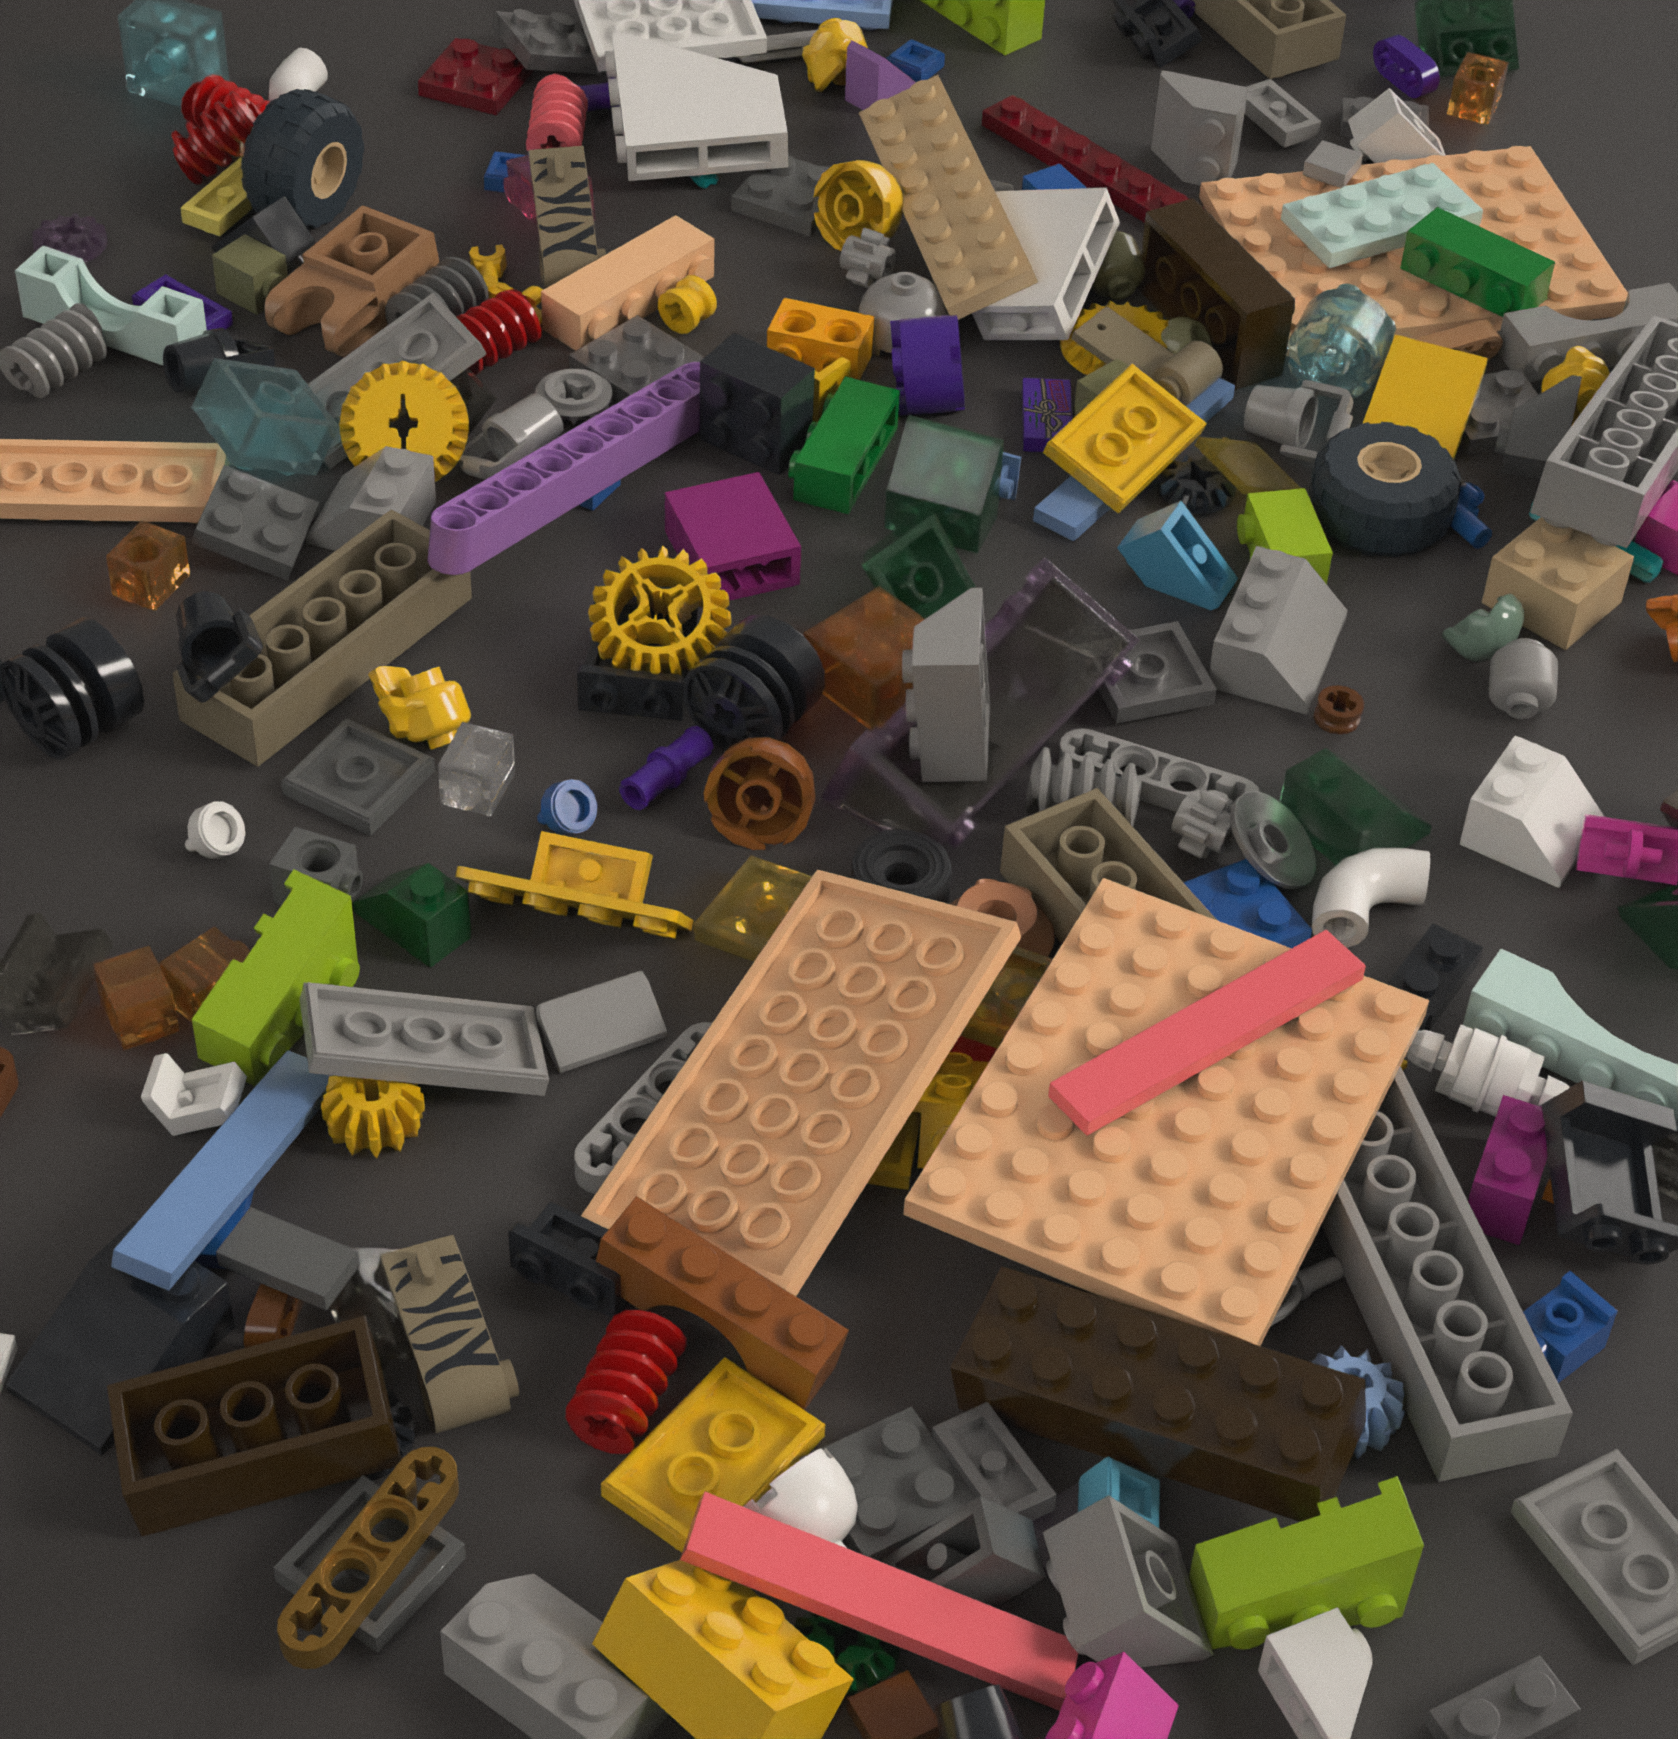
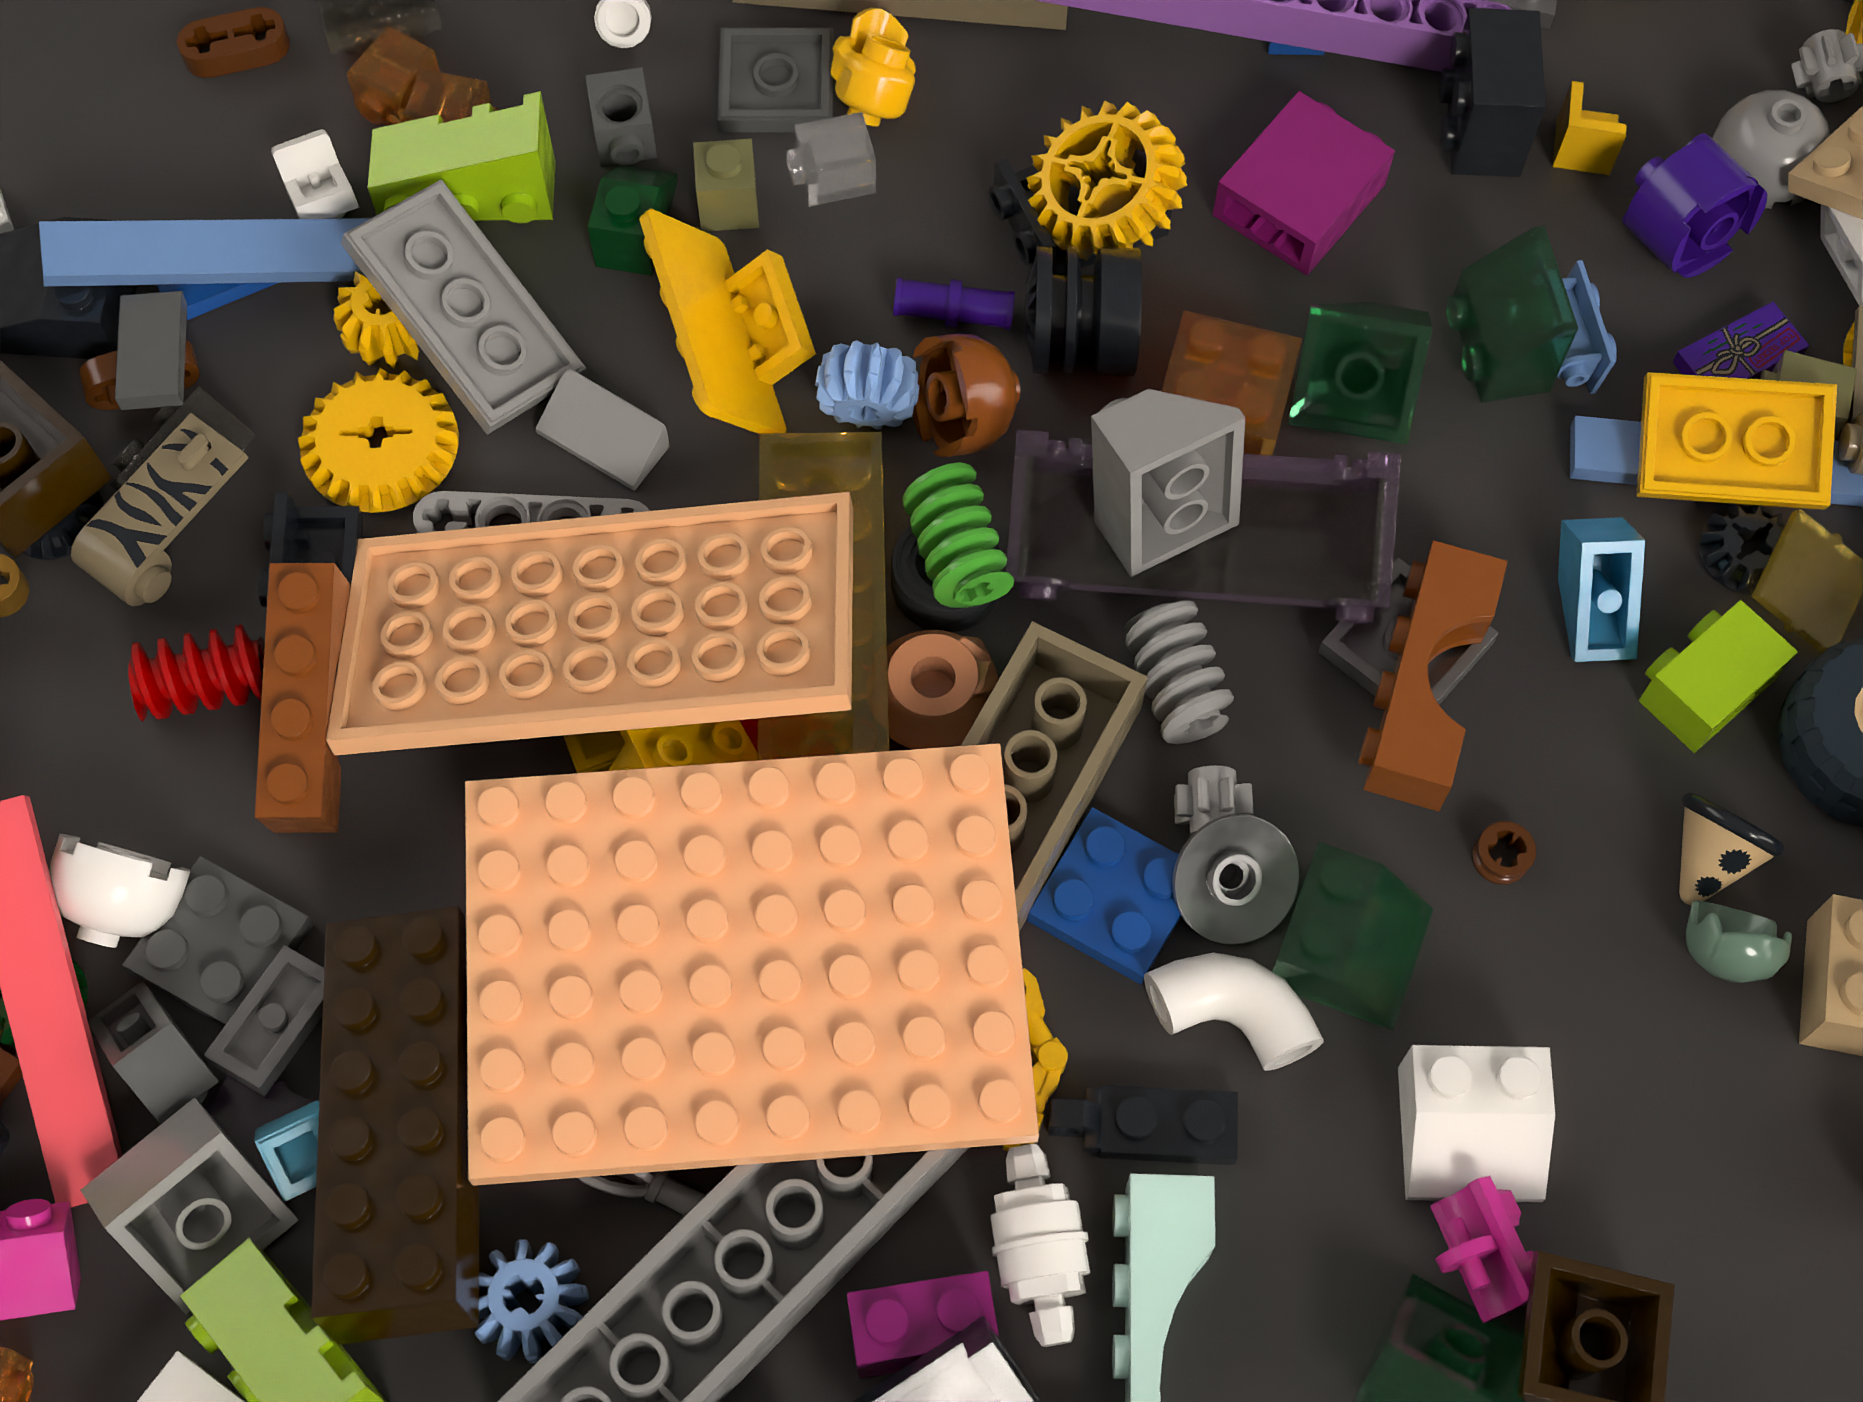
camera: 60 degrees right, 20 degrees up
(445, 834) = (726, 185): none -> olive brick
(487, 1206) = (407, 463): none -> yellow gear
(568, 807) = (840, 256): tile -> none
(710, 836) = (867, 385): none -> light blue gear
(719, 1440) = (167, 790): yellow tile -> none
(821, 335) = (1659, 93): light orange brick -> none
(844, 445) = (1494, 202): green brick -> none
(902, 833) = (956, 538): none -> bright green piece
(1159, 766) = (1272, 728): light grey beam -> none
(1205, 1032) = (831, 942): coral tile -> none
(1240, 690) = (1417, 742): none -> dark orange arch
(1277, 633) = (1565, 736): light grey slope -> none
(1411, 601) = (1719, 848): none -> hat
(1523, 678) = (1687, 1018): light grey head -> none

